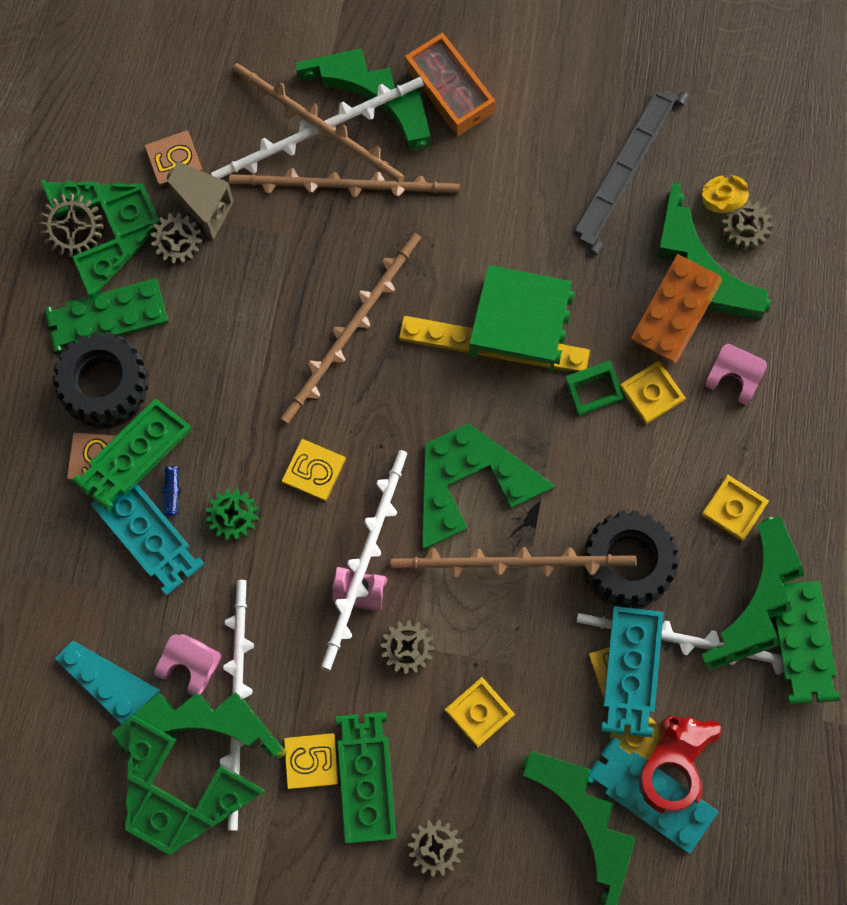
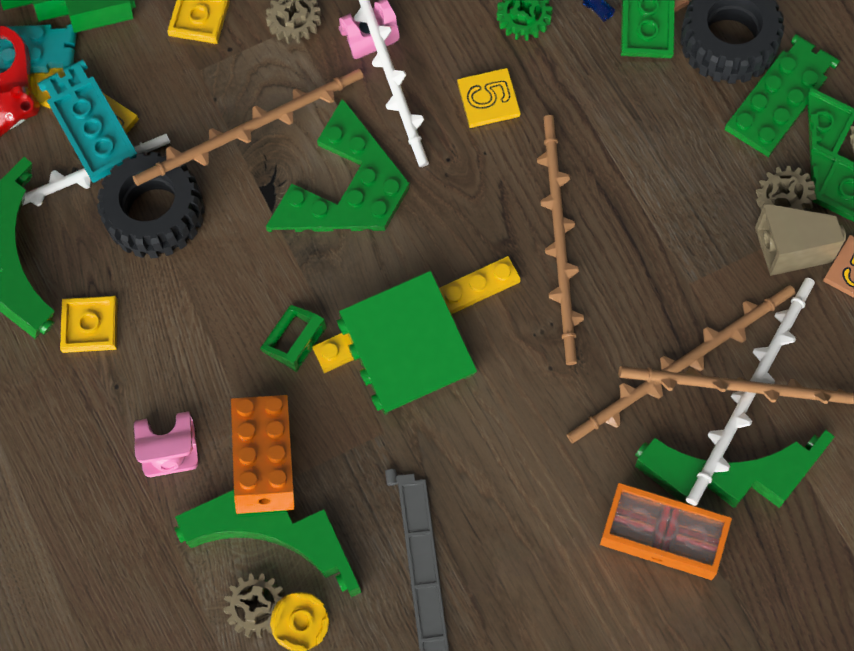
camera: 145 degrees right, 5 degrees down
(652, 392) = (236, 372): yellow tile -> none

